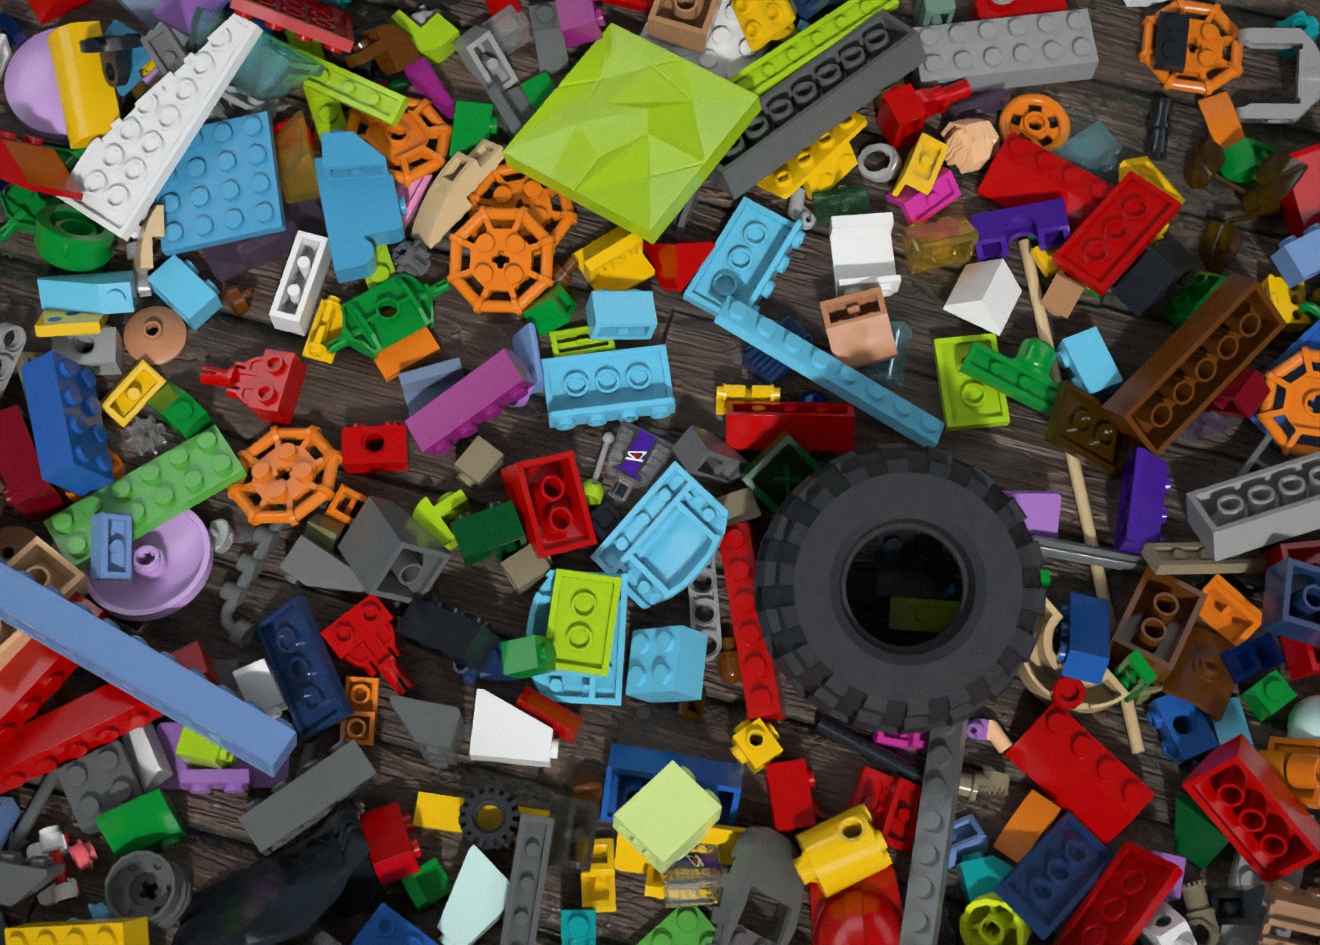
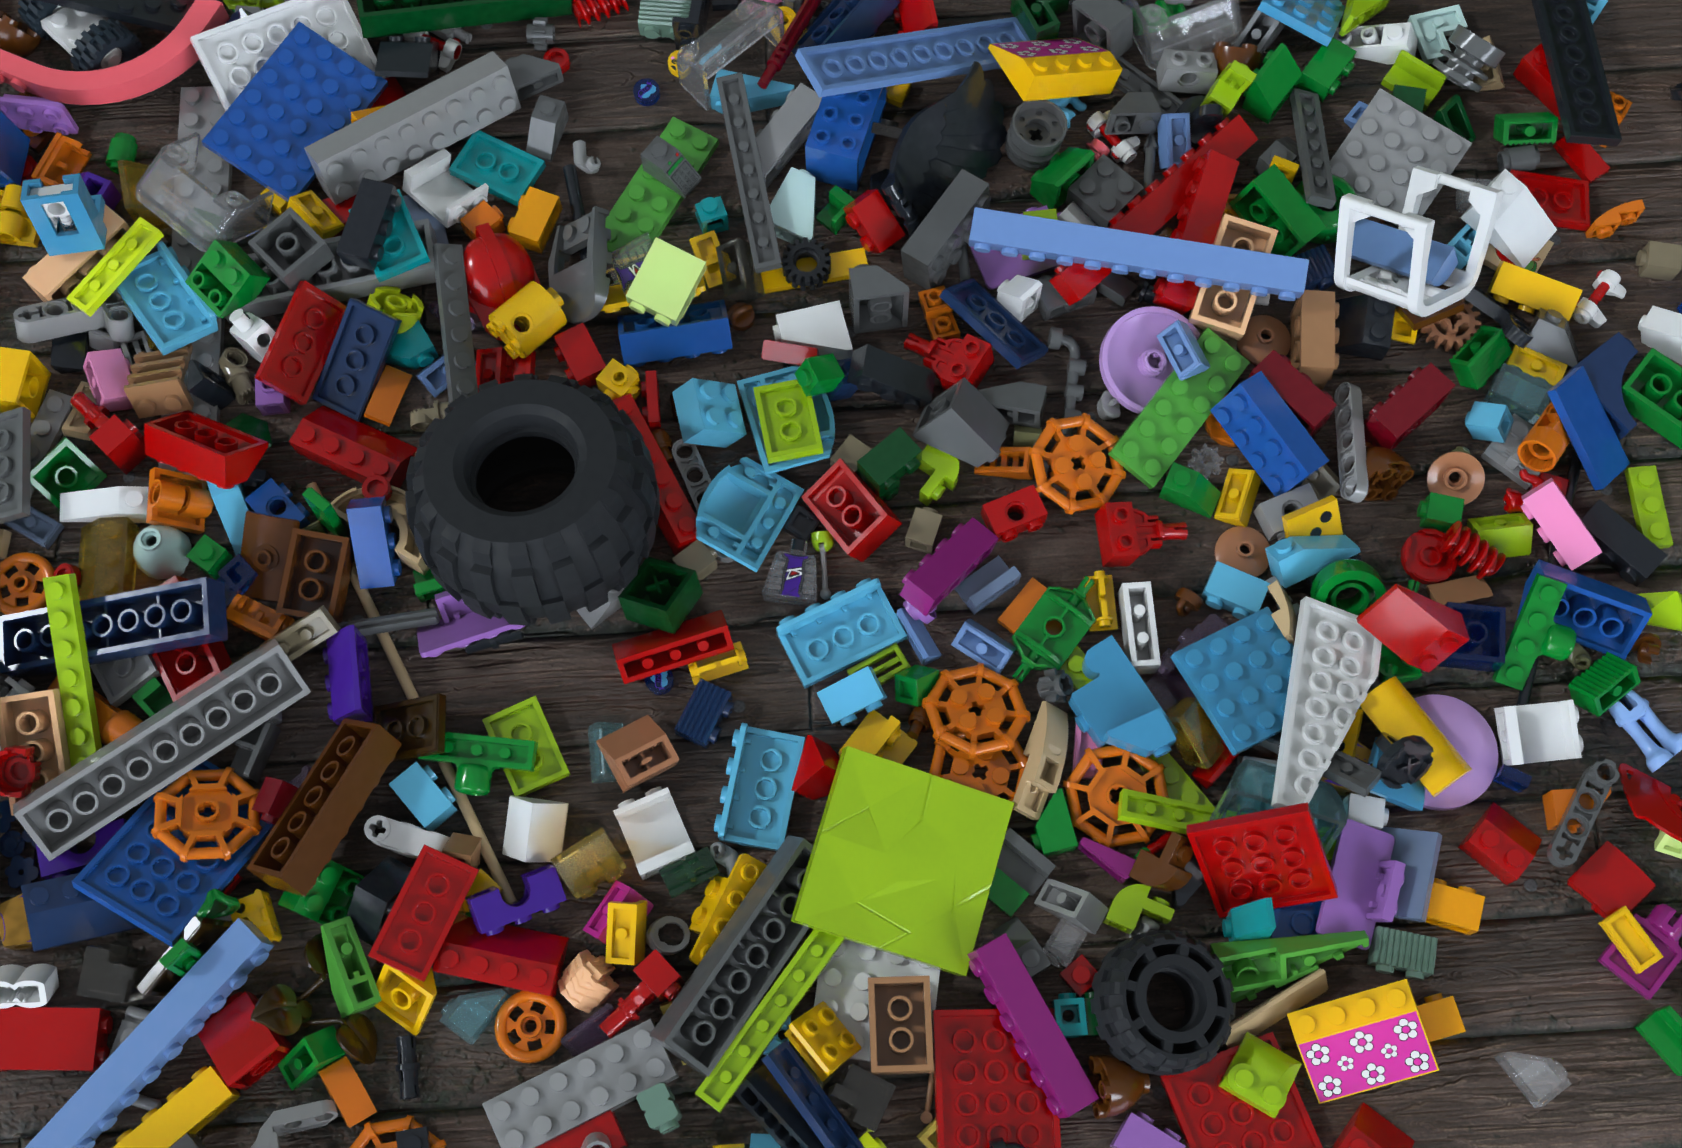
camera: 165 degrees right, 0 degrees up
(464, 330) = (983, 646): none -> medium blue slope
(709, 457) = (733, 592): dark grey slope -> none
(729, 700) = (650, 390): none -> red plate
(829, 372) = (652, 699): medium azure plate -> none
(1116, 328) = (402, 836): none -> white piece
(1200, 217) = (348, 968): none -> bright green slope

